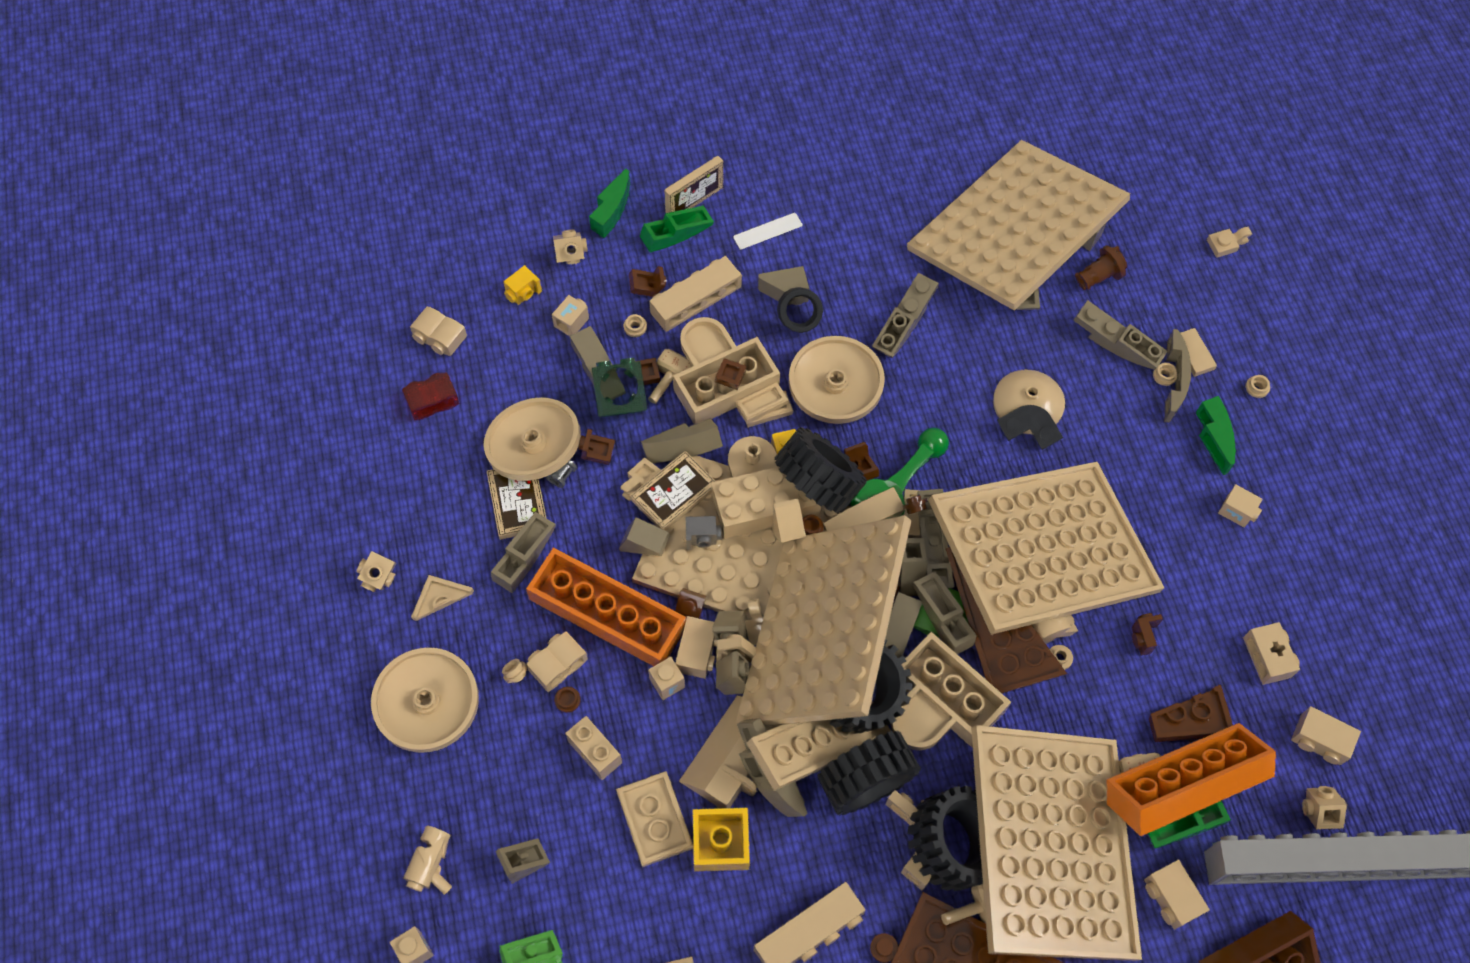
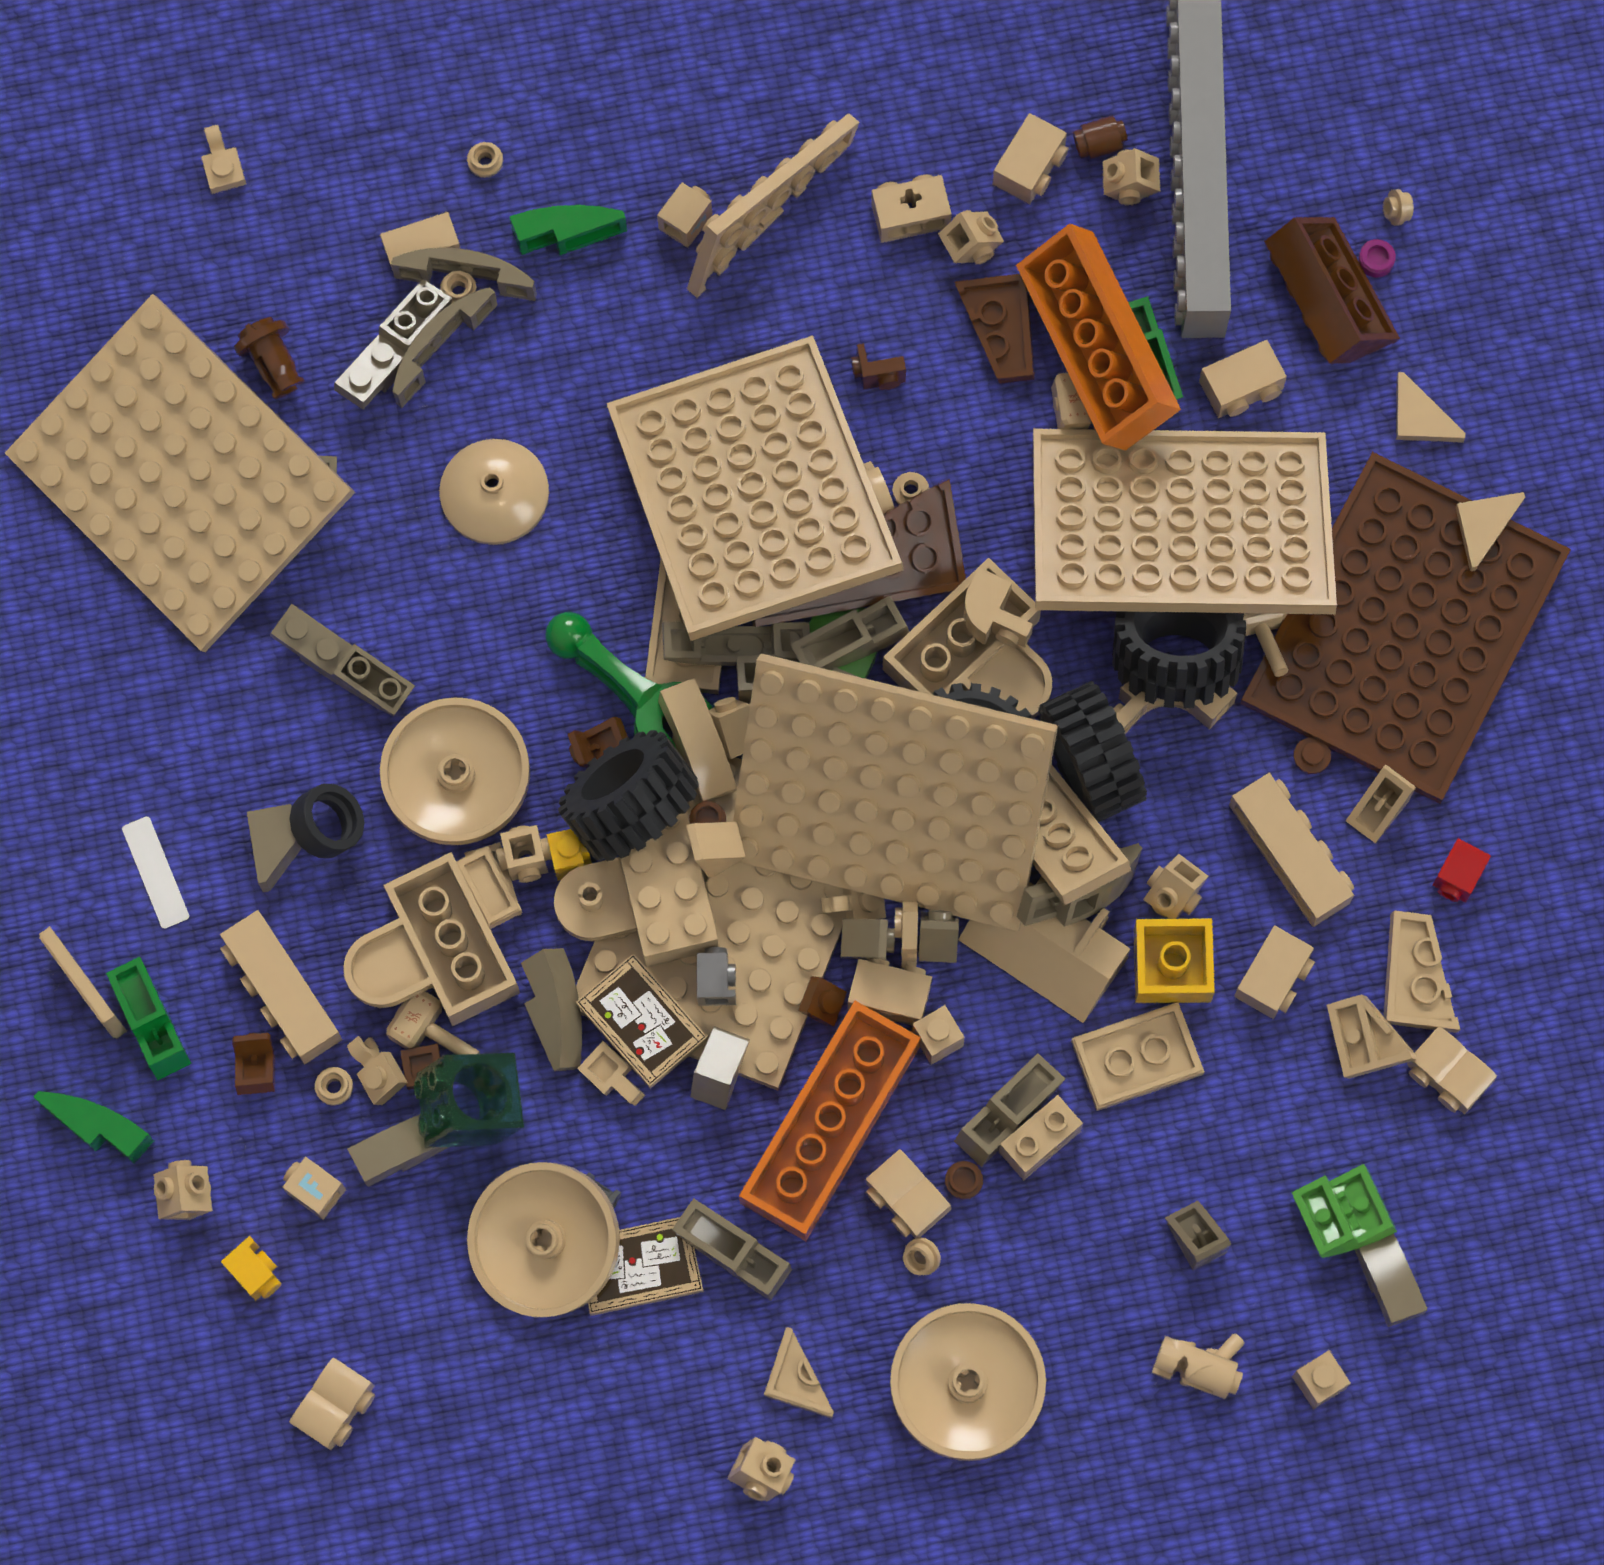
camera: 85 degrees left, 10 degrees up
(430, 396) = (453, 1409): clear red brick -> none
(596, 448) = (559, 1140): reddish brown bracket -> none
(616, 729) = (1009, 1109): none -> dark tan slope
(641, 348) = (380, 1073): none -> tan plate
(715, 917) = (1274, 973): none -> tan brick
(730, 374) = (456, 924): reddish brown plate -> none
(775, 841) = (1175, 888): none -> tan brick
(783, 417) = (519, 842): none -> tan brick
(915, 504) = (692, 661): reddish brown plate -> none
(969, 694) = (985, 611): none -> tan brick
(1031, 418) = (534, 491): black plate -> none
(1128, 358) = (469, 309): none -> dark tan slope
(1255, 692) = (971, 237): none -> tan brick
(1256, 551) = (752, 214): none -> tan wing
(1352, 787) = (1100, 137): none -> reddish brown brick

